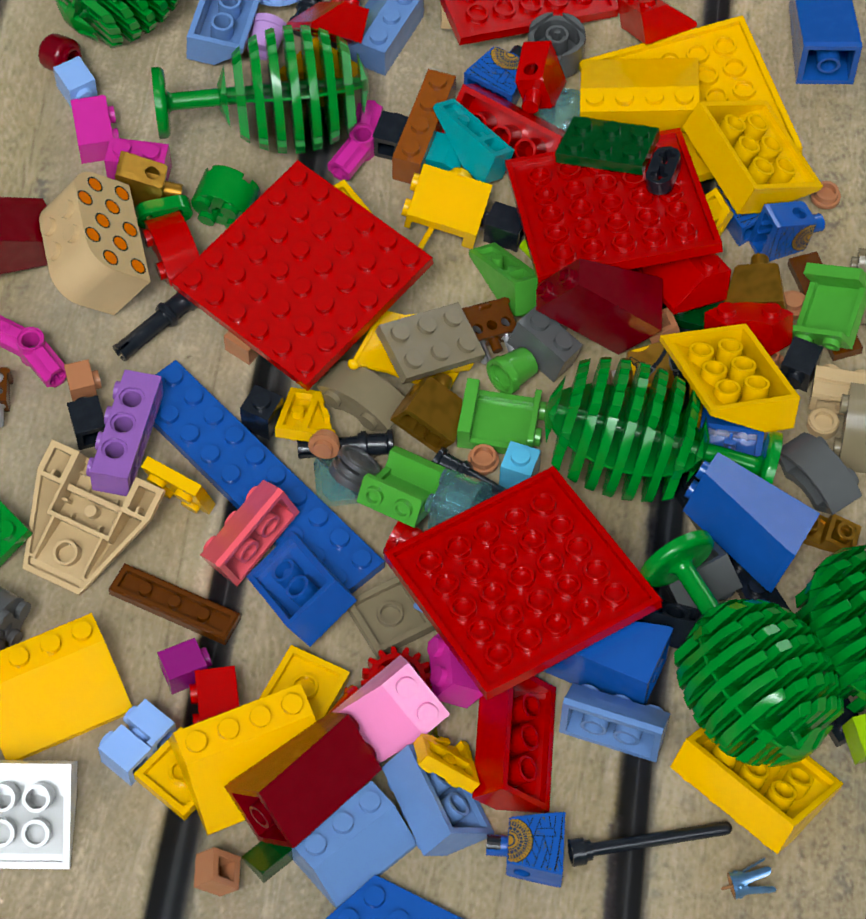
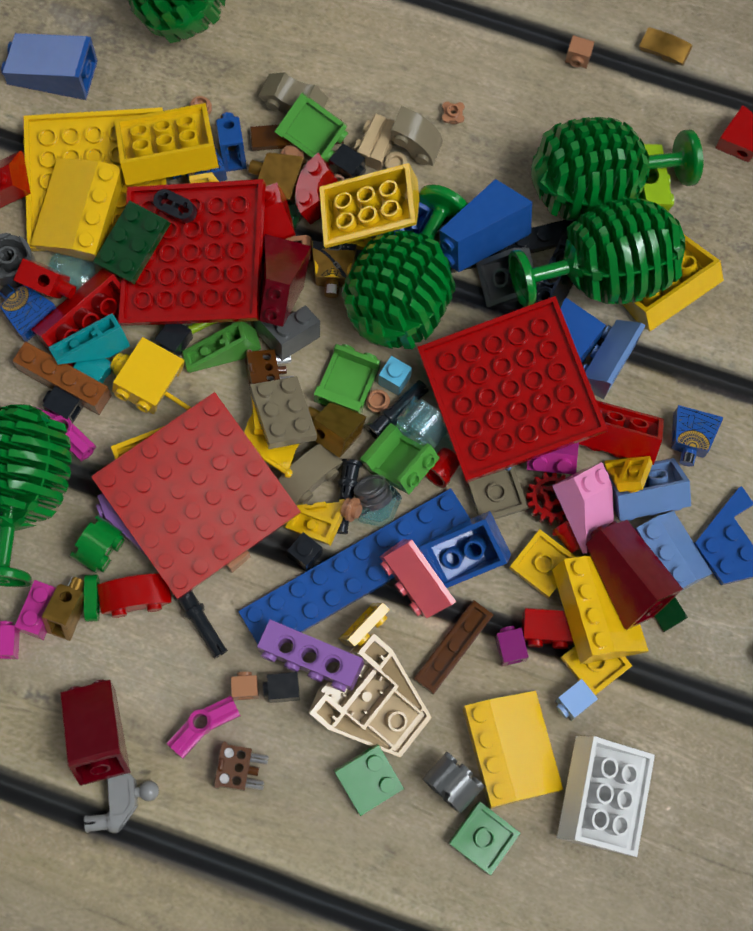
camera: 80 degrees left, 15 degrees up
(94, 243) = (123, 654): tan brick -> none
(149, 724) = (558, 679): light blue brick -> none
(217, 871) = (679, 649): nougat plate -> none
(511, 370) = (308, 362): bright green piece -> none
(582, 851) = (699, 400): black piece -> none
(738, 881) = (740, 308): flat silver piece -> none
(819, 473) = (451, 171): dark grey brick -> none
(833, 533) = (483, 179): pearl gold slope -> none

